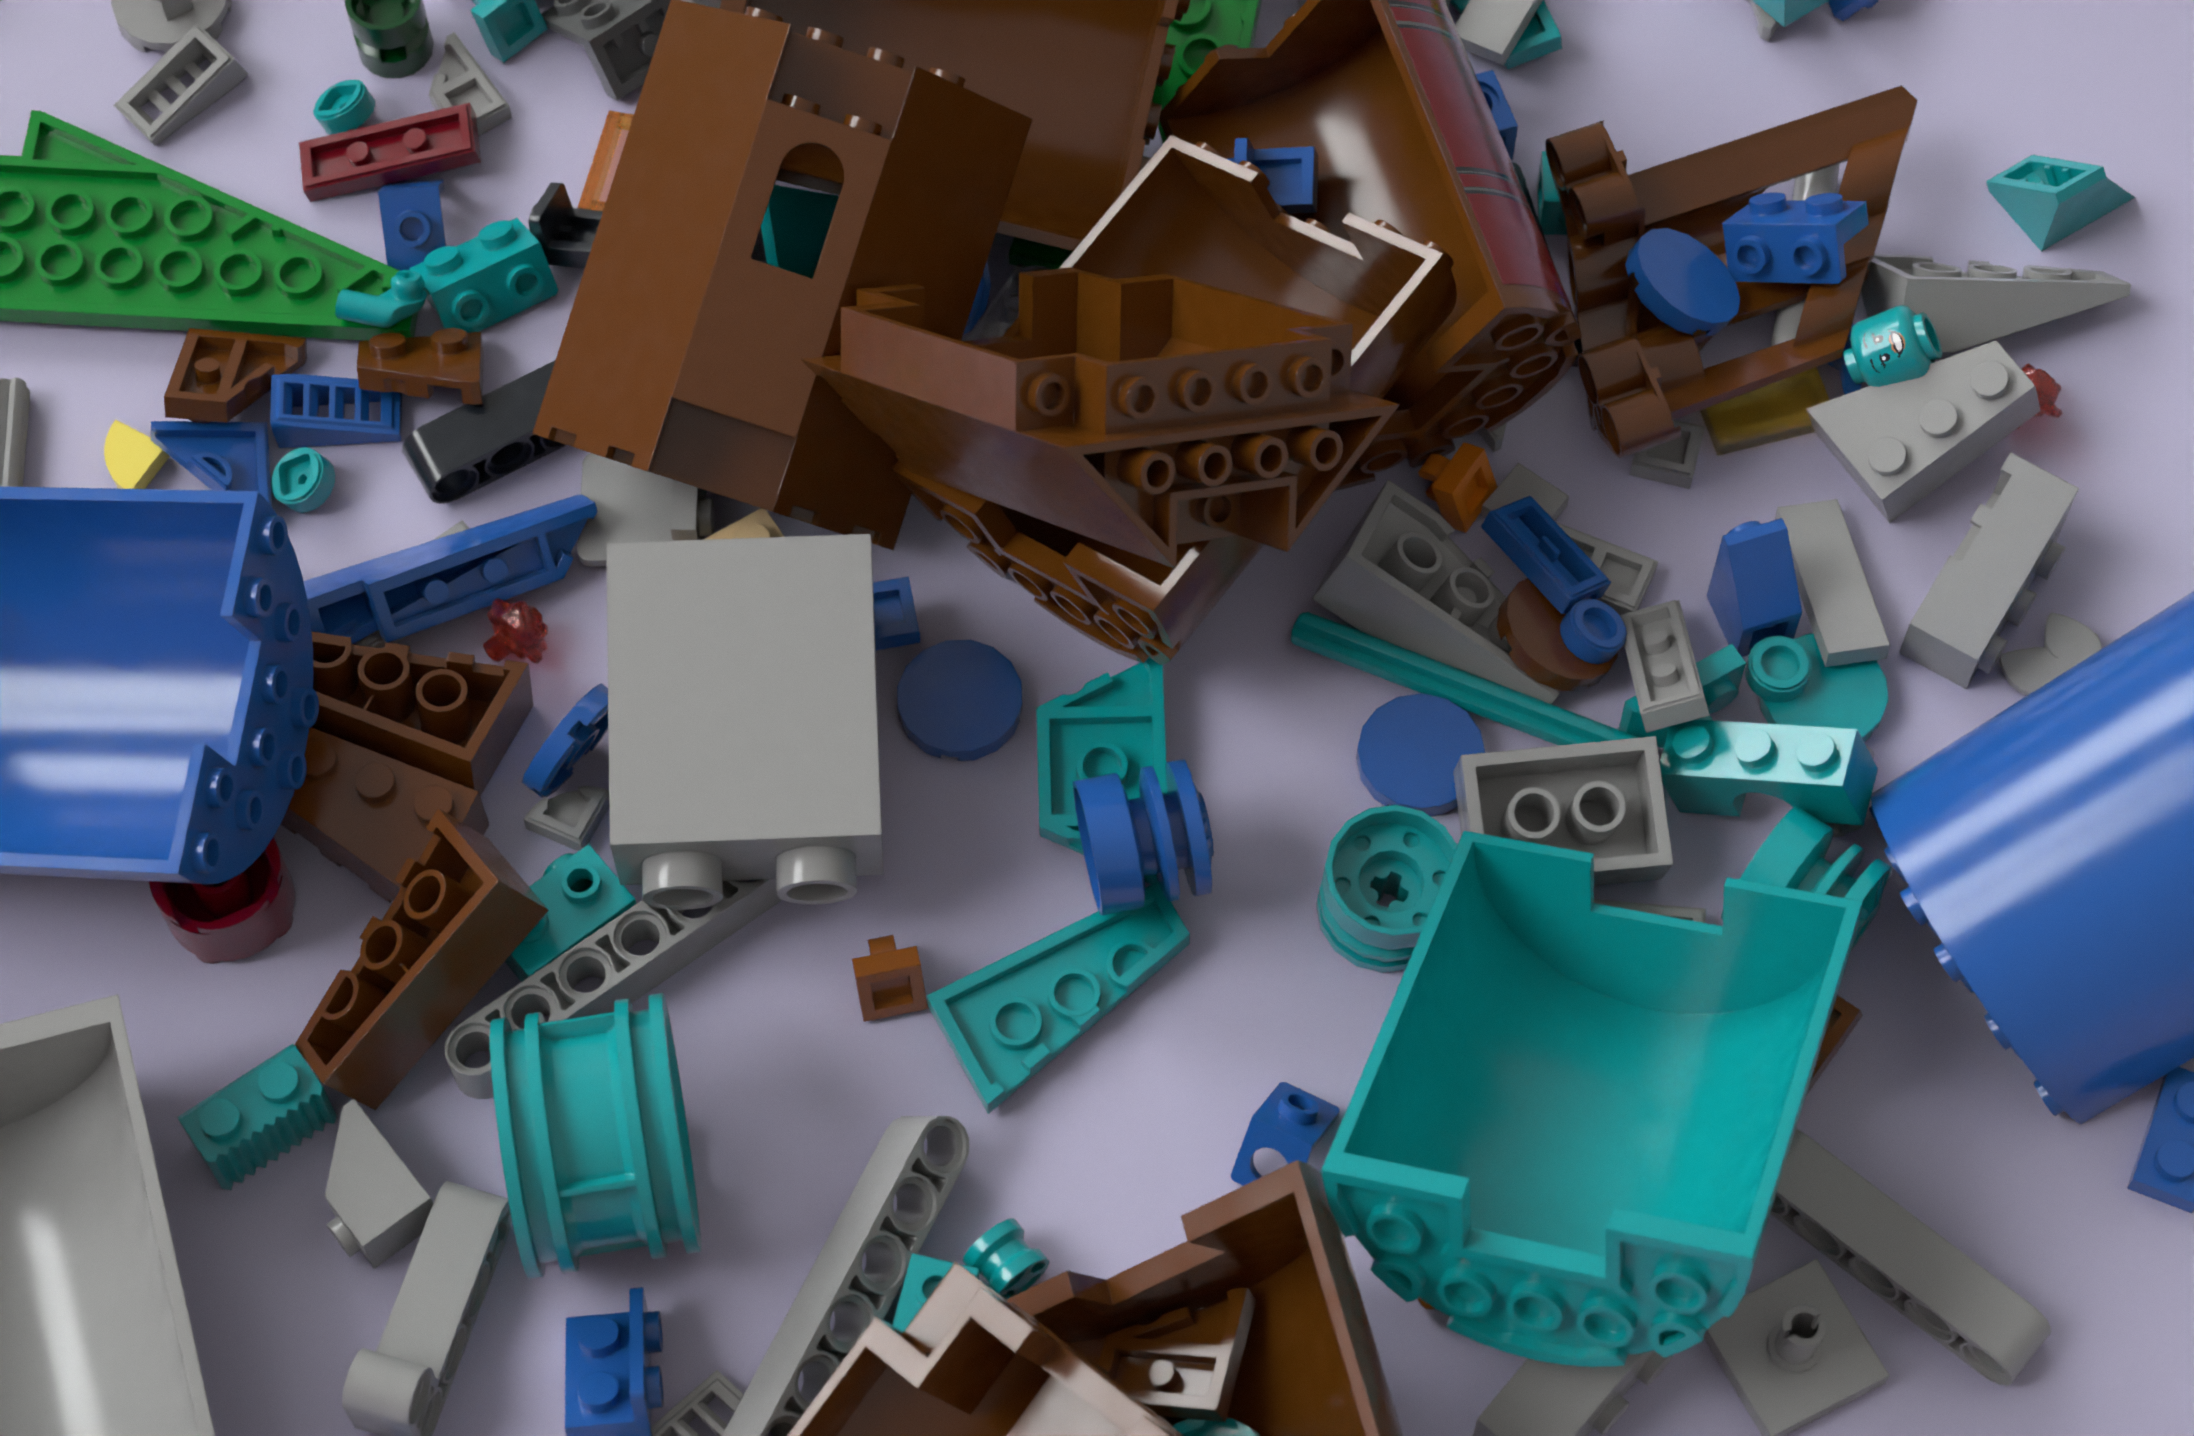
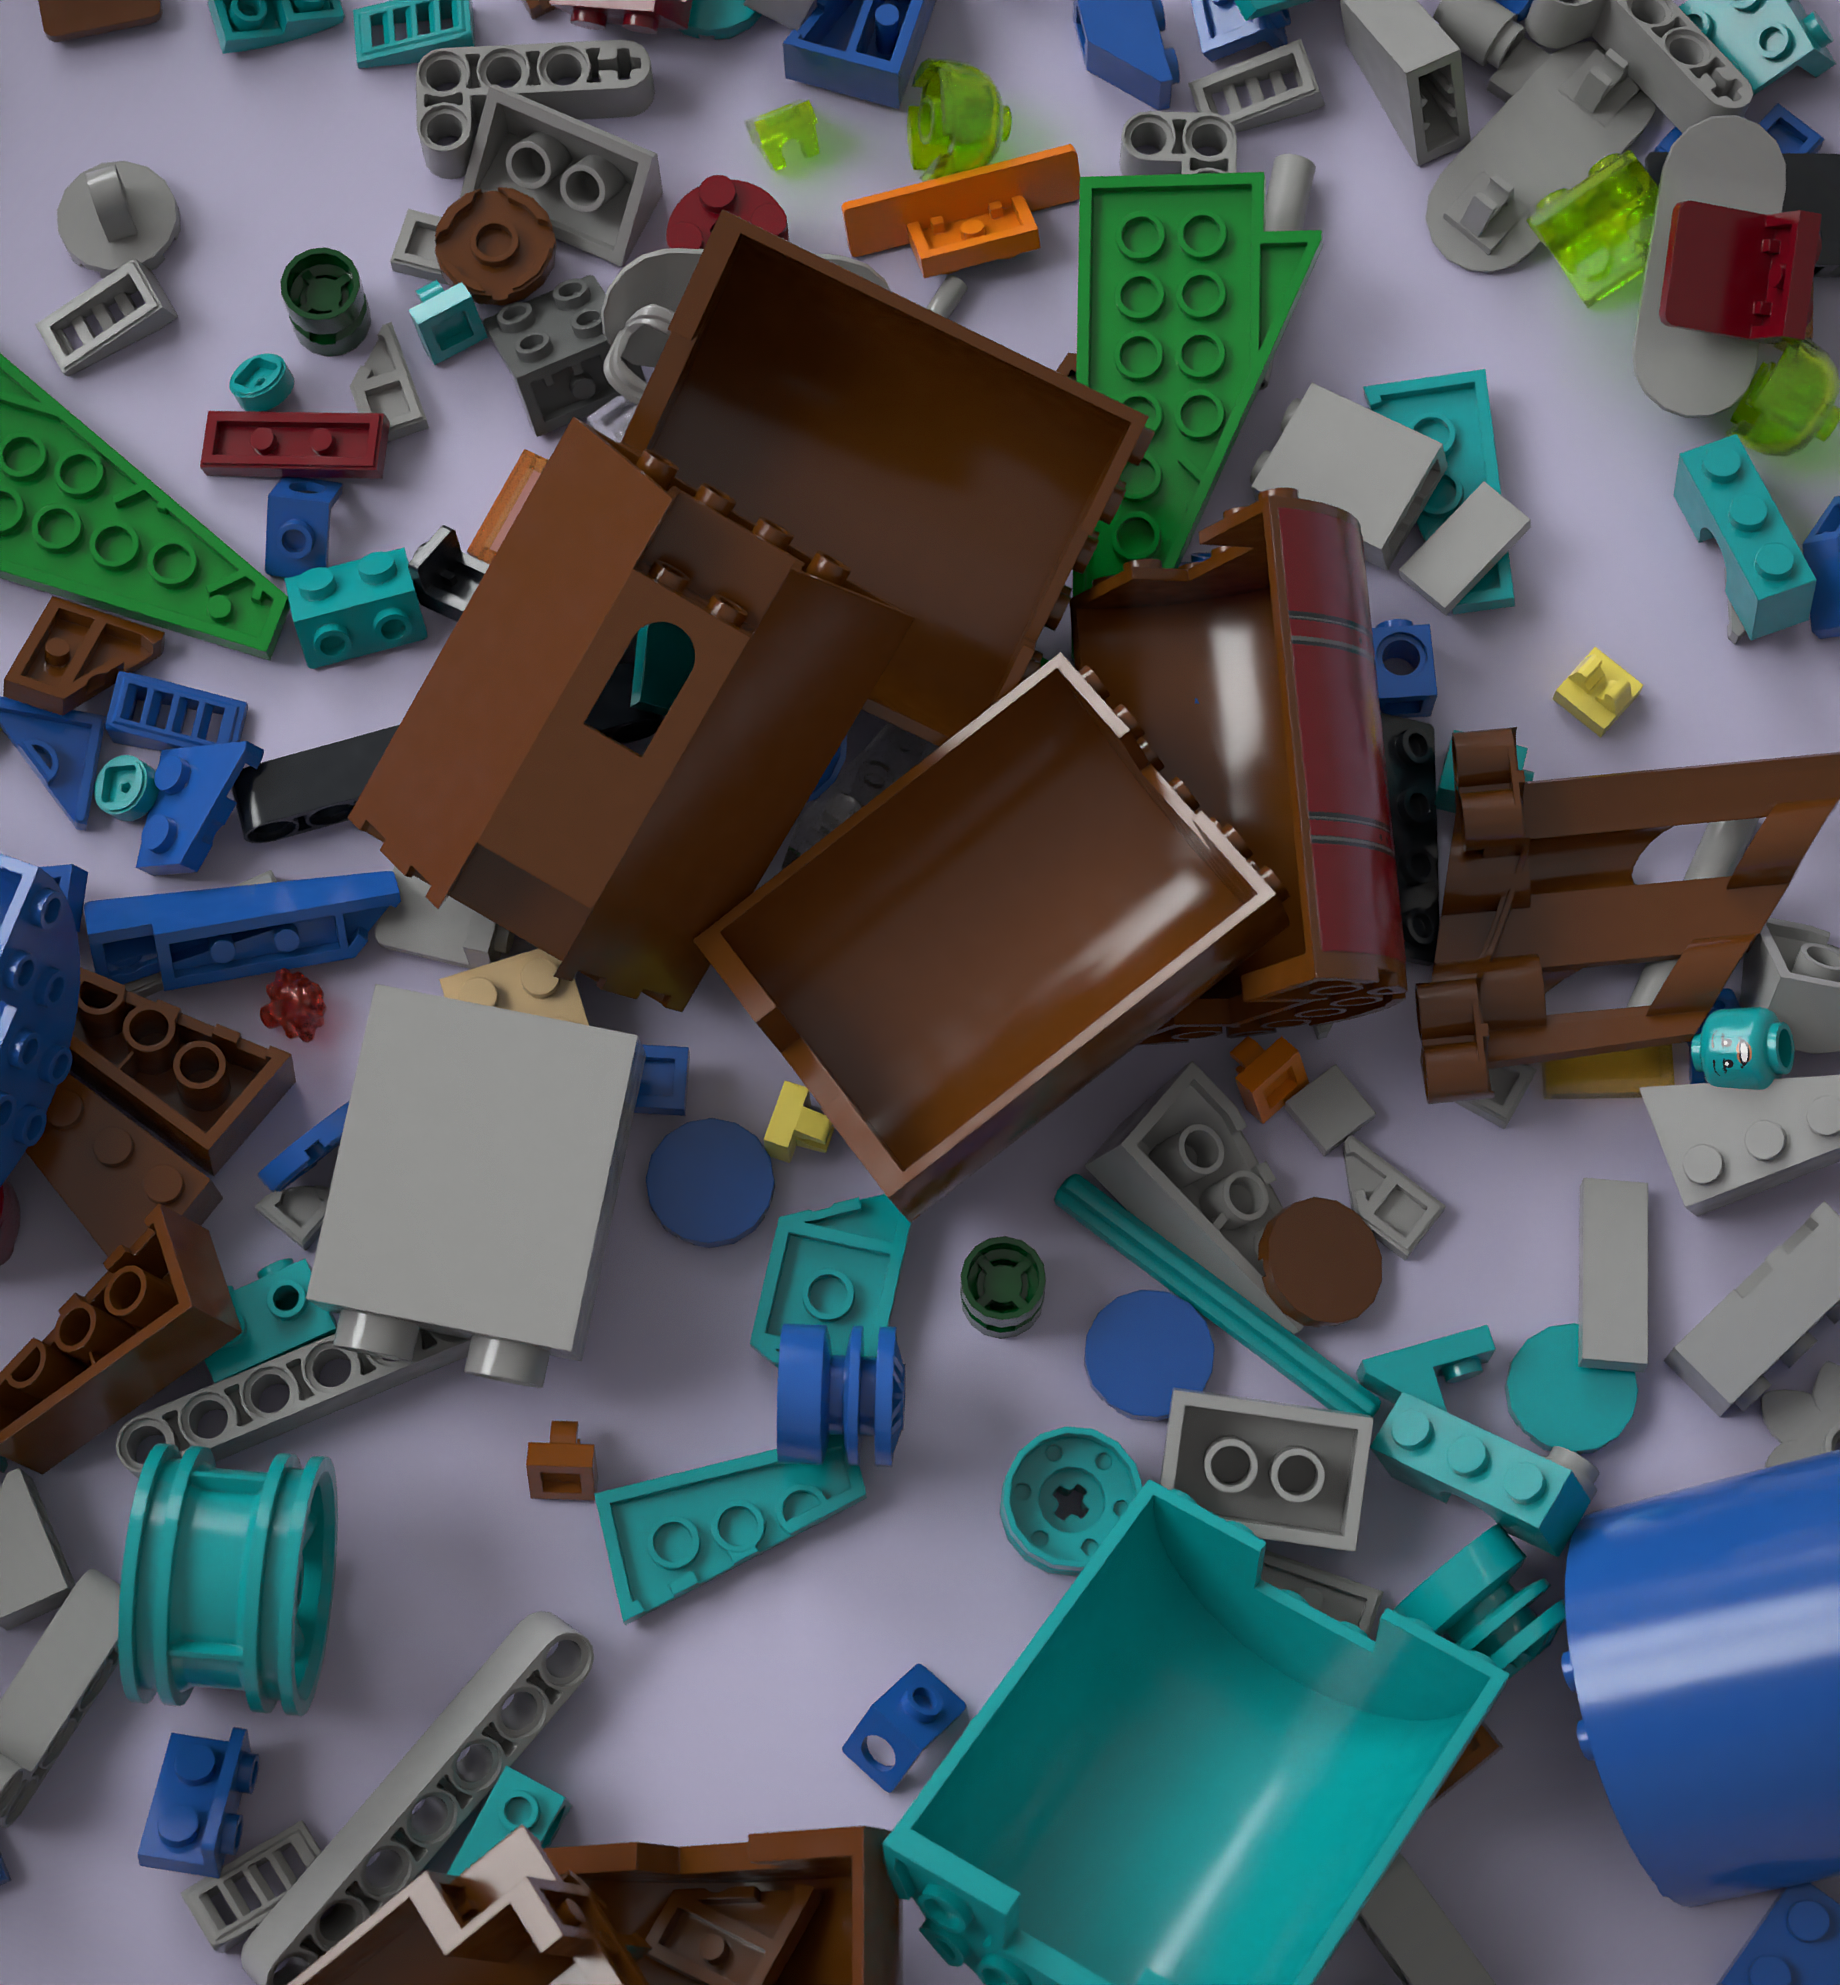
camera: 15 degrees right, 10 degrees up
(372, 476) = (191, 804): none -> blue wing
(388, 308) = (246, 627): teal arm -> none
(418, 363) = (272, 694): reddish brown wing -> none
(1006, 1259) = (600, 1785): teal wheel -> none
(1030, 626) = (796, 1124): none -> light yellow tile
(1118, 406) = (917, 972): reddish brown panel -> none
(1267, 720) = (1002, 1287): none -> dark green wheel
(1290, 173) = (1166, 704): blue bracket -> none
(1545, 553) = (1322, 1179): blue tile -> none
(1593, 631) = (1354, 1272): blue tile -> none
(1658, 103) = (1597, 692): none -> light yellow tile
(1663, 666) = (1410, 1333): light grey tile -> none
(1683, 282) = (1551, 921): blue tile -> none
(1755, 585) = (1530, 1268): blue slope -> none
(1778, 669) = (1530, 1357): teal tile -> none
(1792, 238) = (1677, 900): blue bracket -> none

